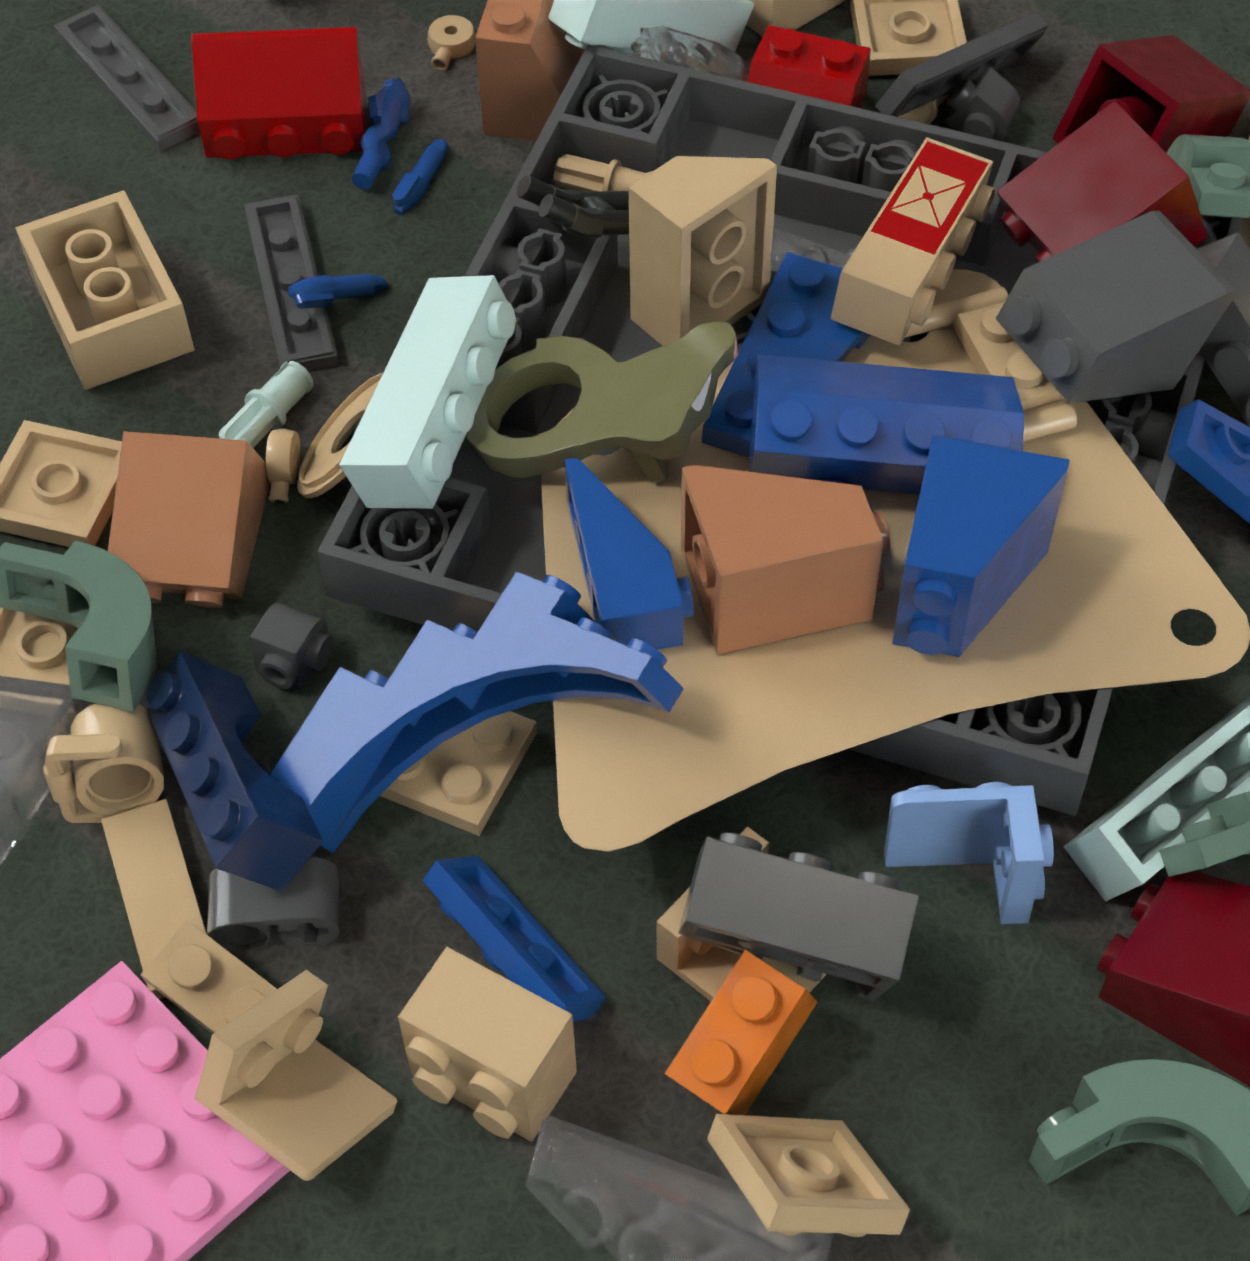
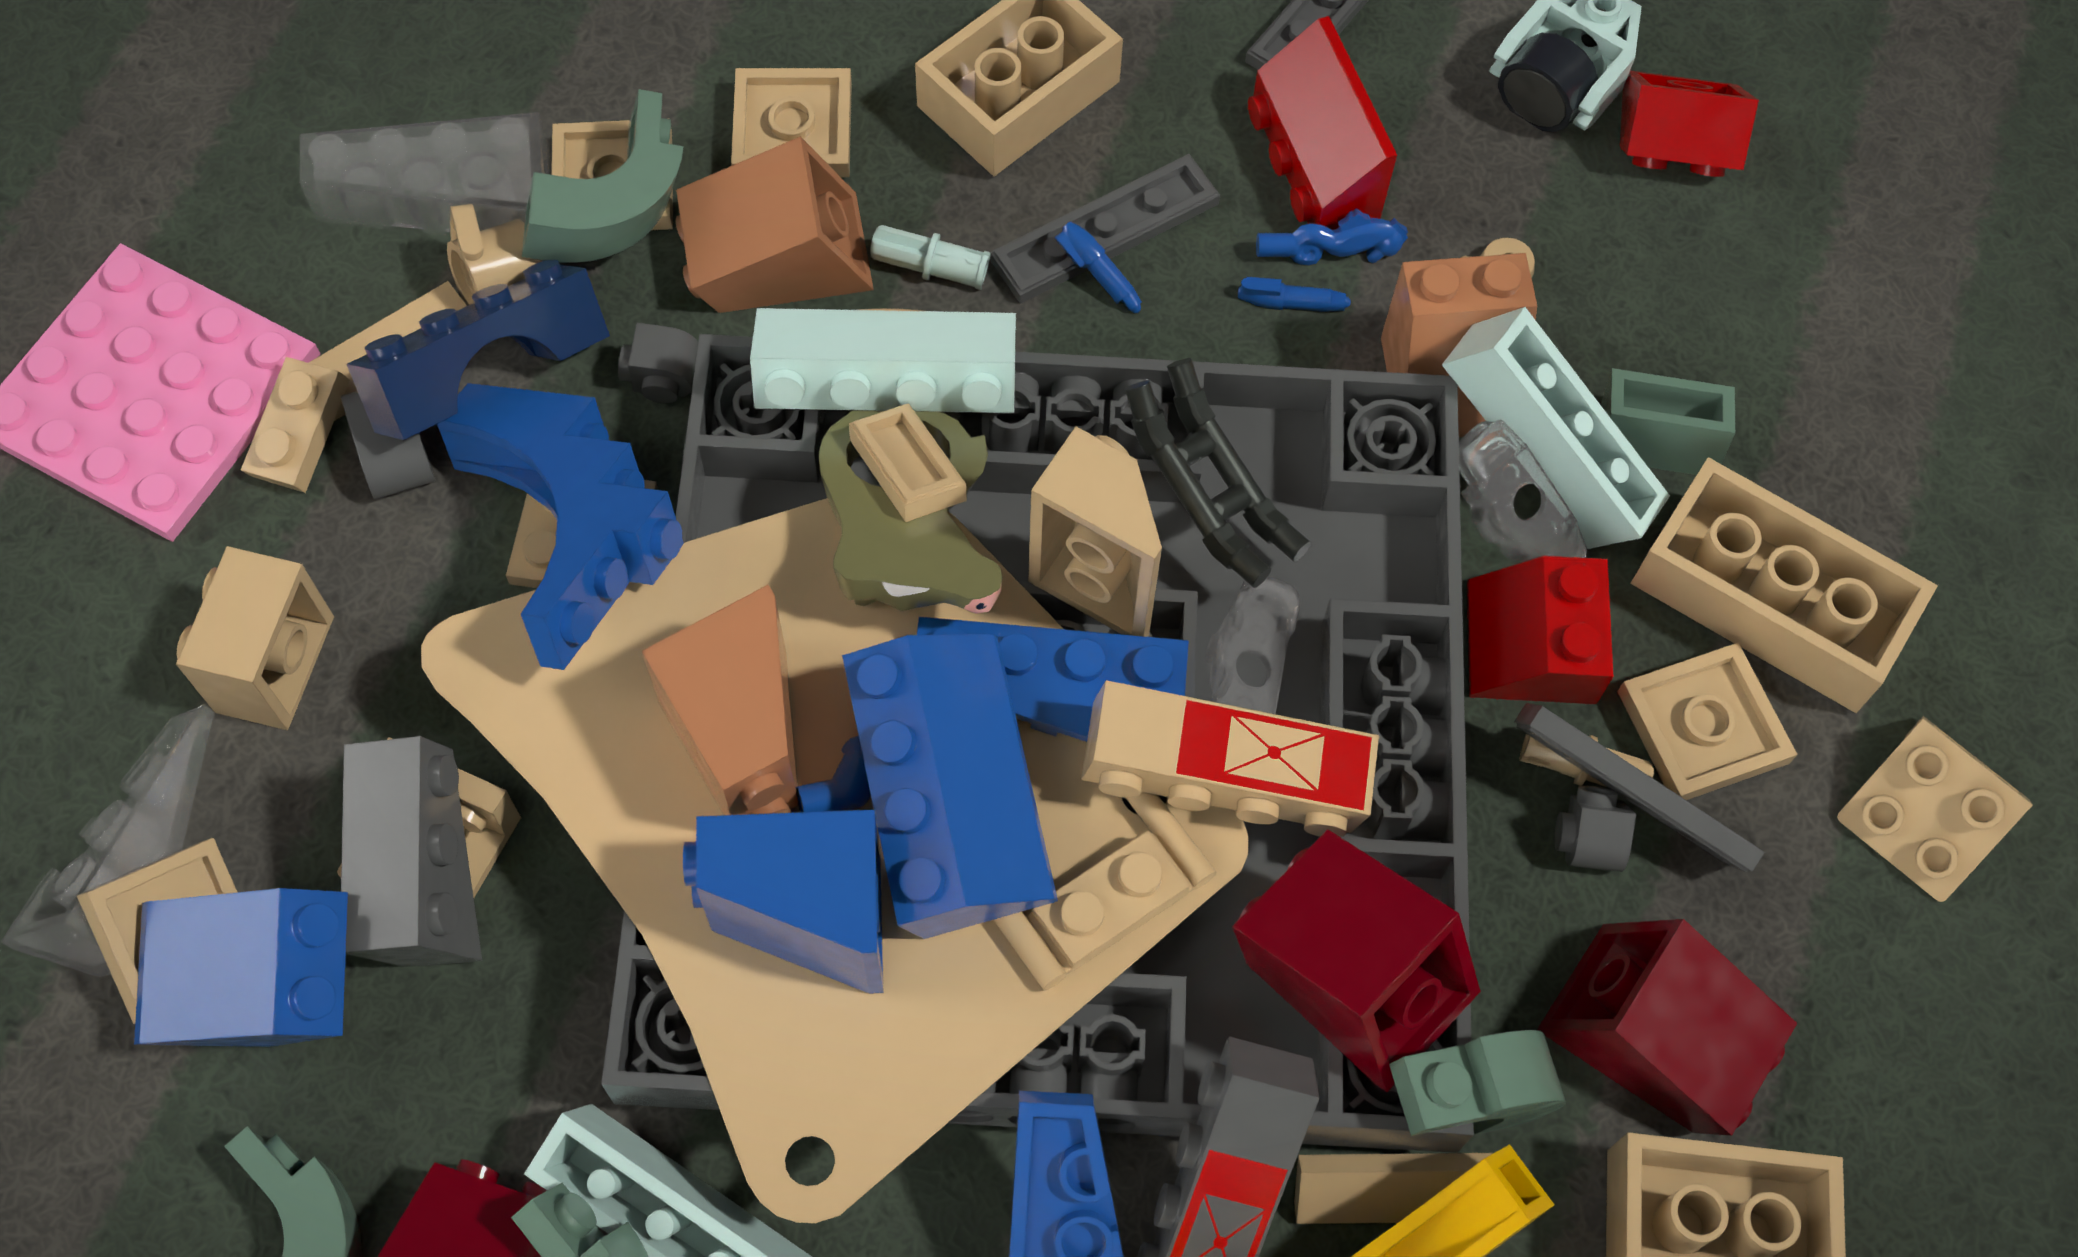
camera: 70 degrees right, 10 degrees up
(282, 462) = (872, 289): tan piece -> none
(285, 1086) = (201, 498): tan bracket -> none
(511, 935) = (388, 637): blue plate -> none
(555, 384) = (907, 462): none -> tan tile
(591, 175) = (1290, 460): tan axle -> none
(625, 566) = (720, 569): blue slope -> none
(742, 1036) = (287, 840): orange brick -> none
(888, 1083) = (242, 968): none -> slope
(975, 827) = (559, 1044): light blue bracket -> none
(1117, 311) = (1159, 980): dark grey slope -> none

